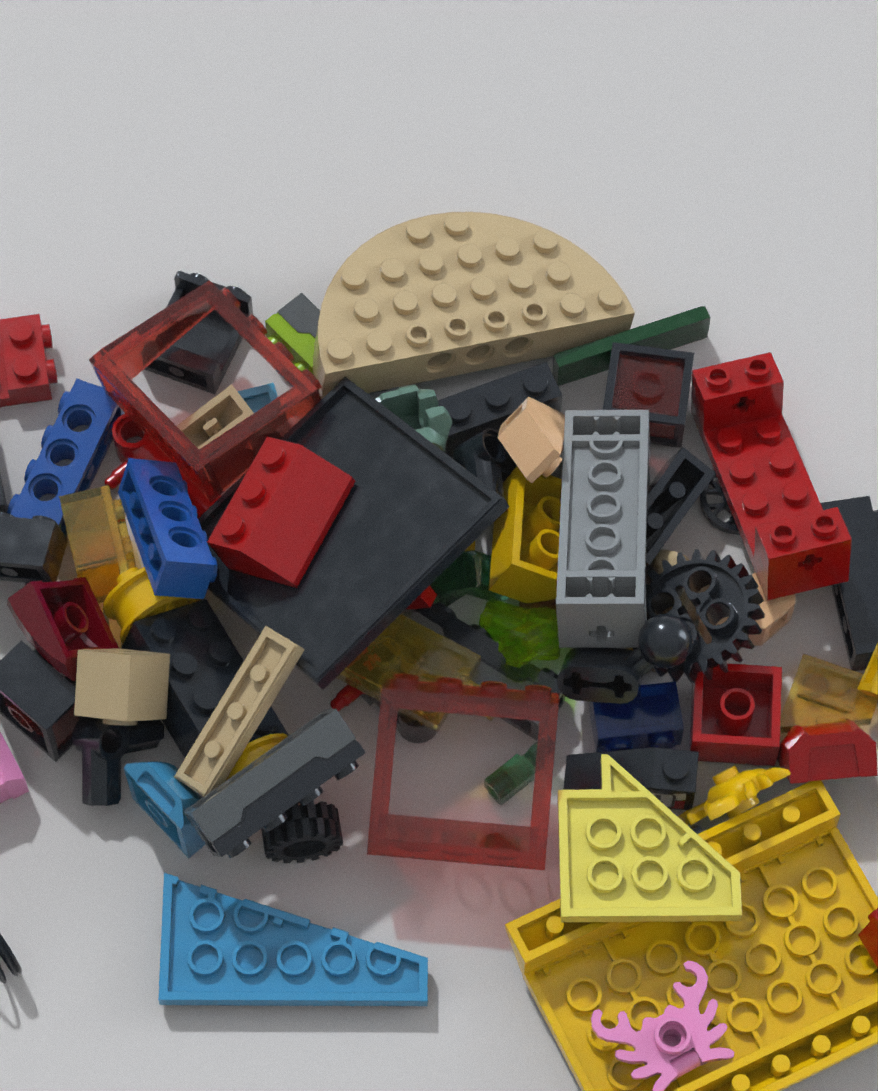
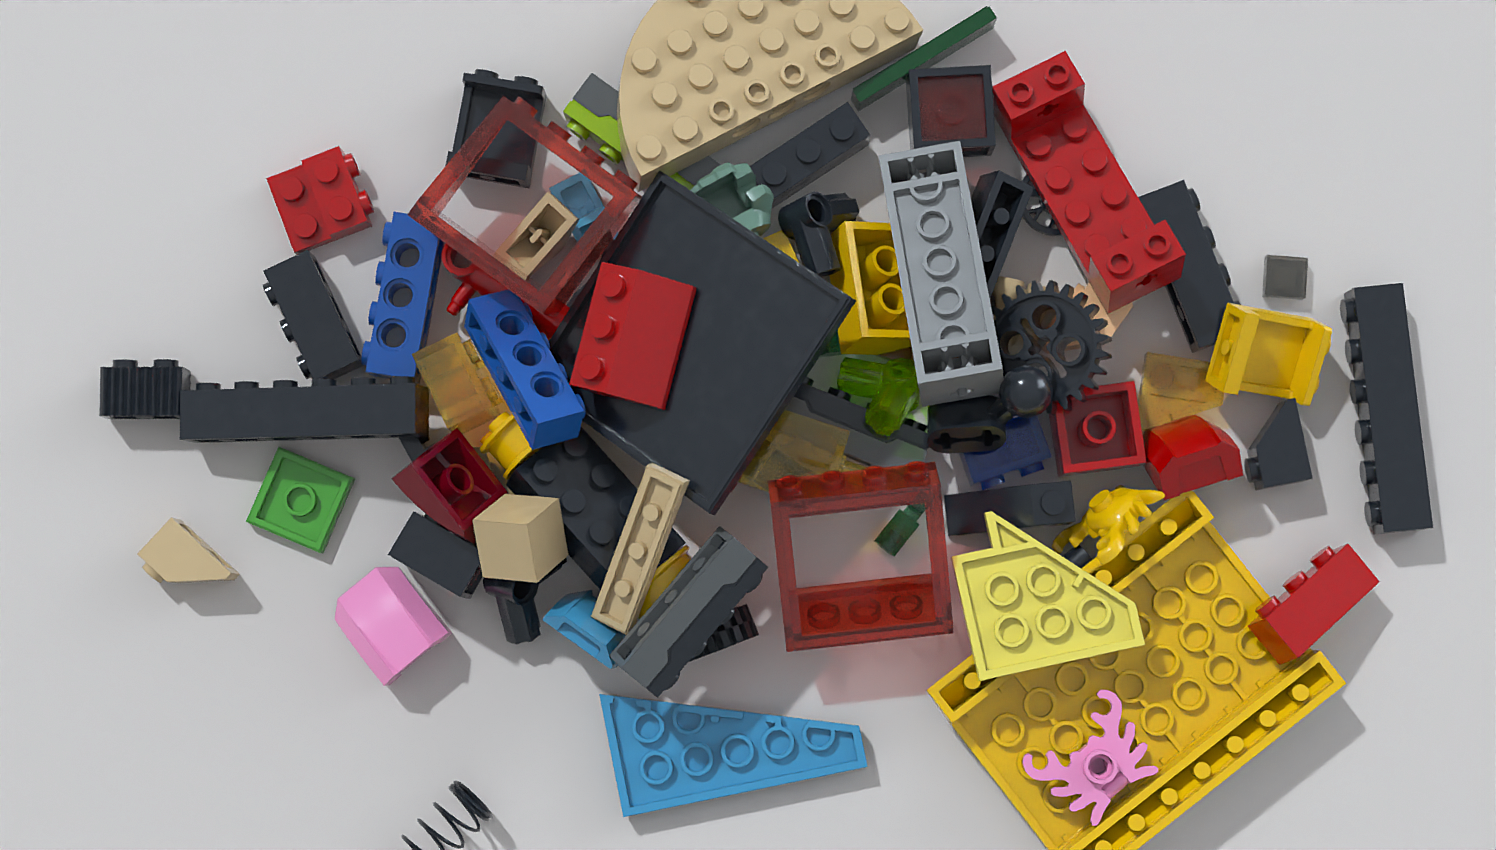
camera: 10 degrees left, 20 degrees up
(534, 438) = (855, 194): light nougat slope -> none

